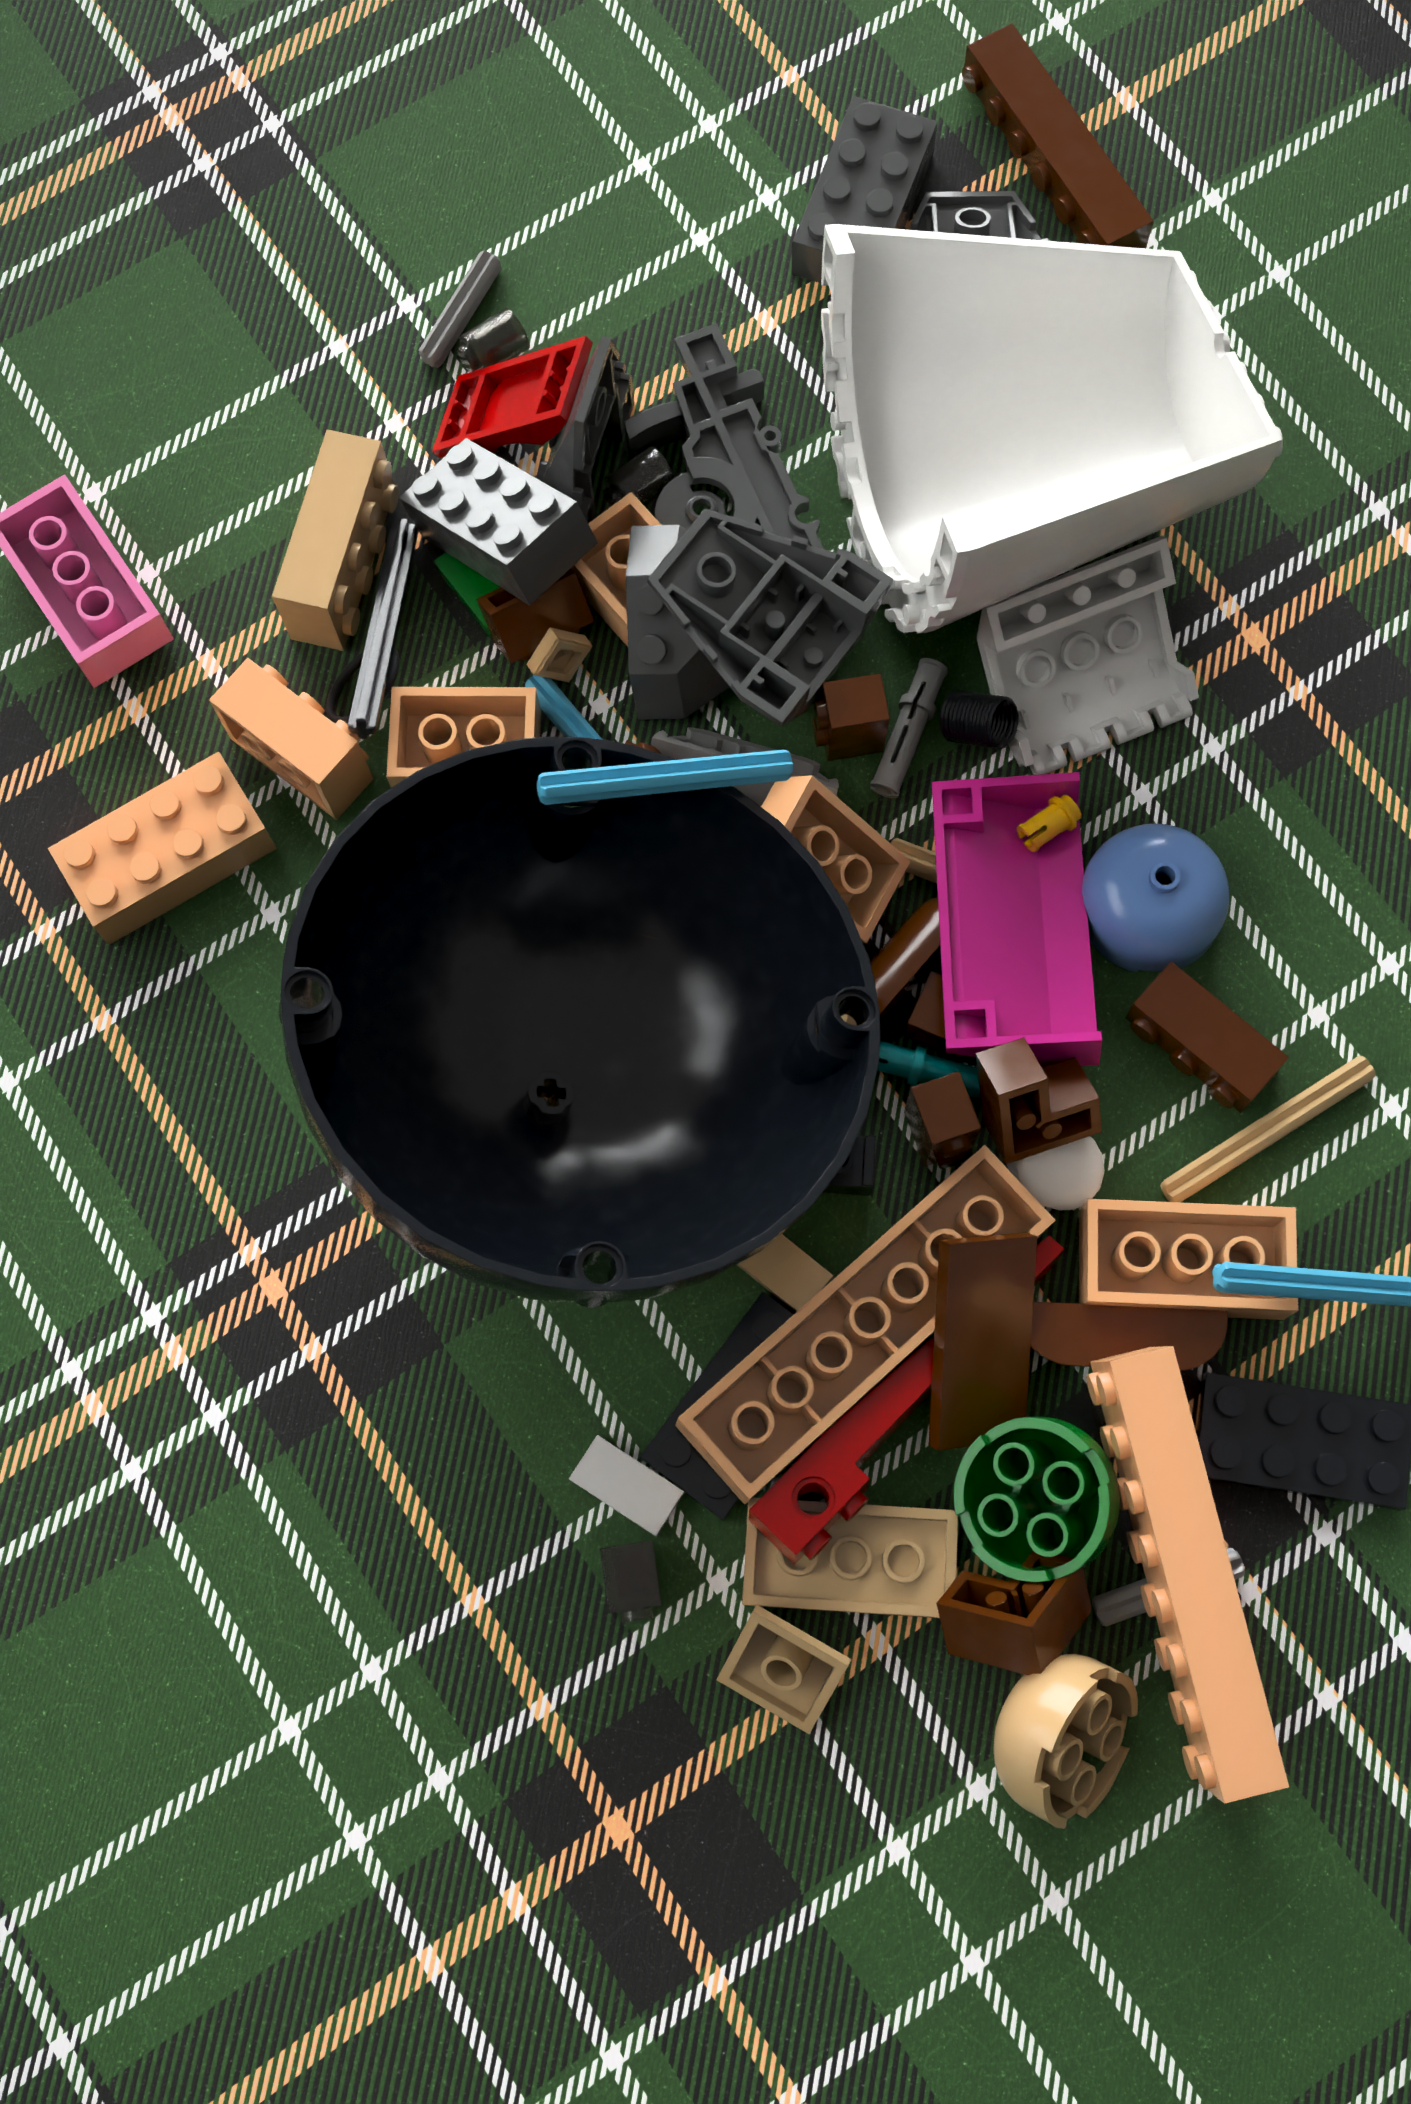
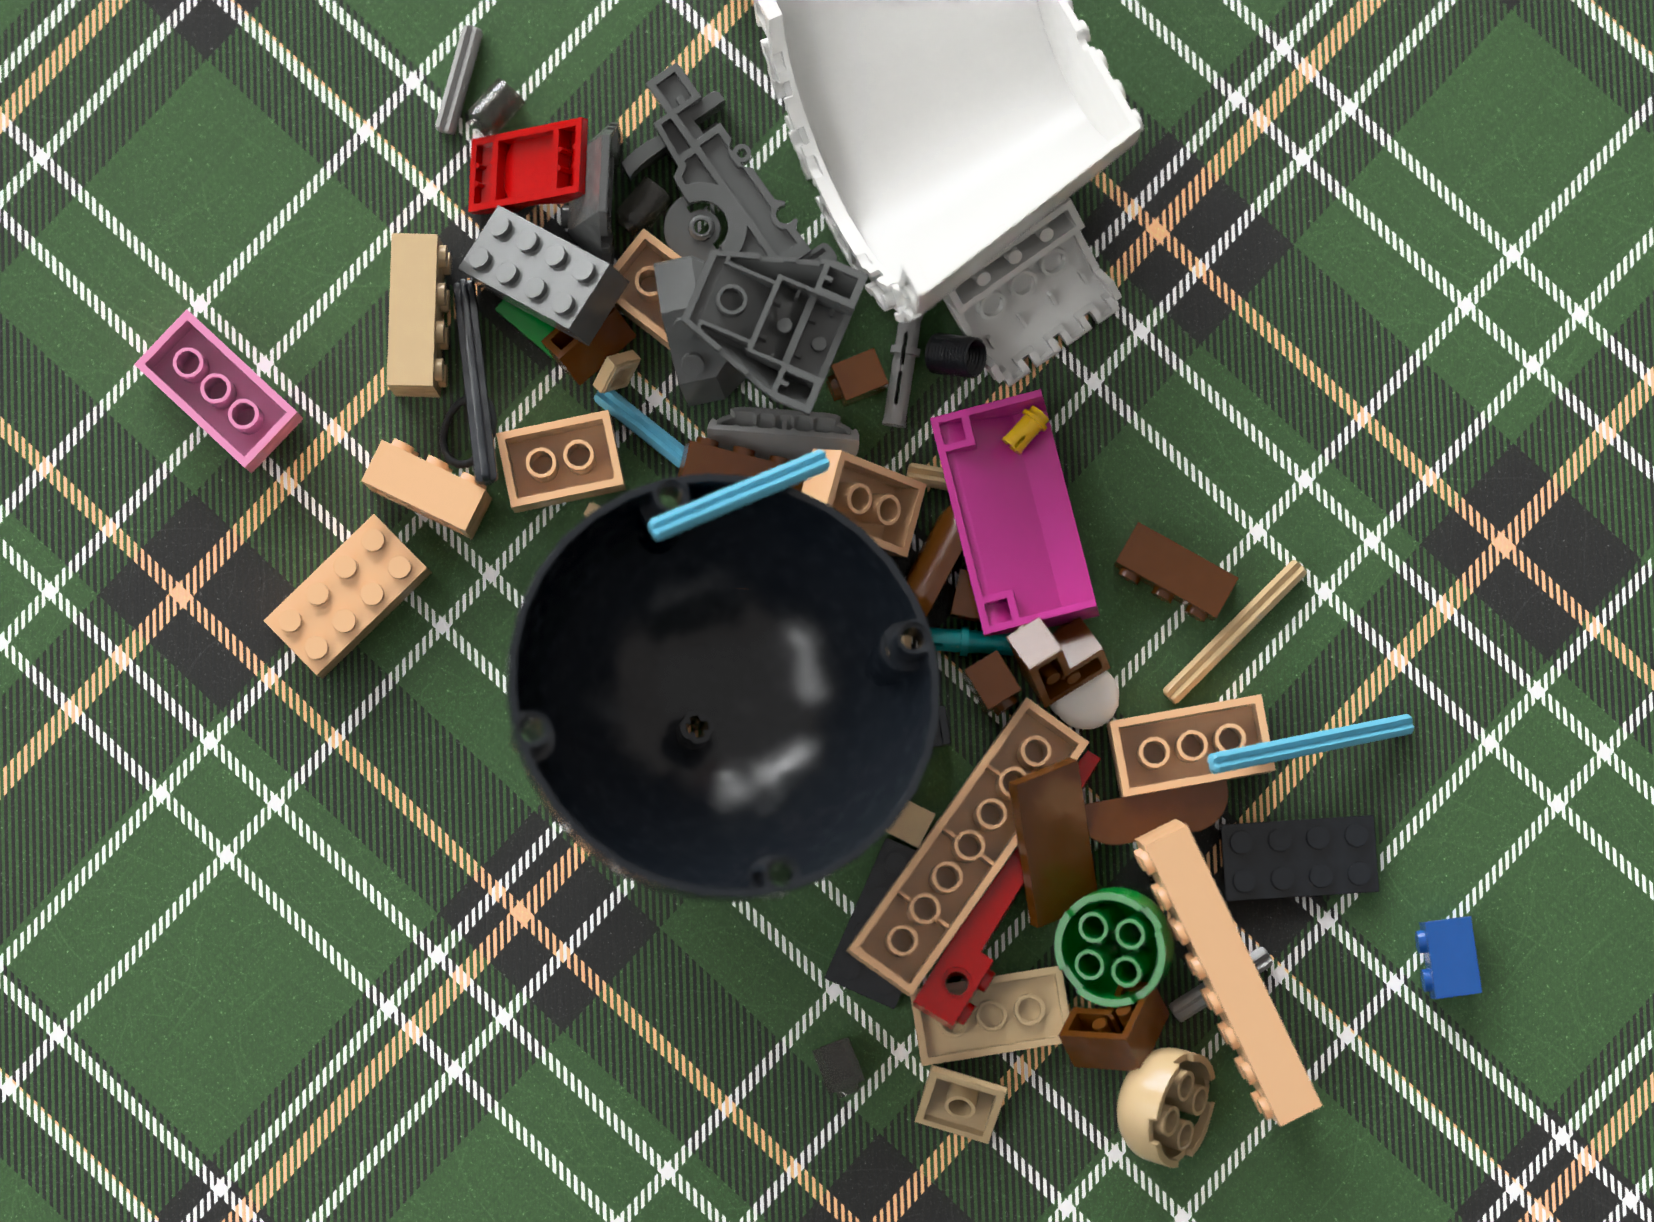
camera: 15 degrees left, 10 degrees up
(626, 1485) = (819, 1000): white tile -> none
(1137, 917) = (1109, 494): medium blue cylinder -> none

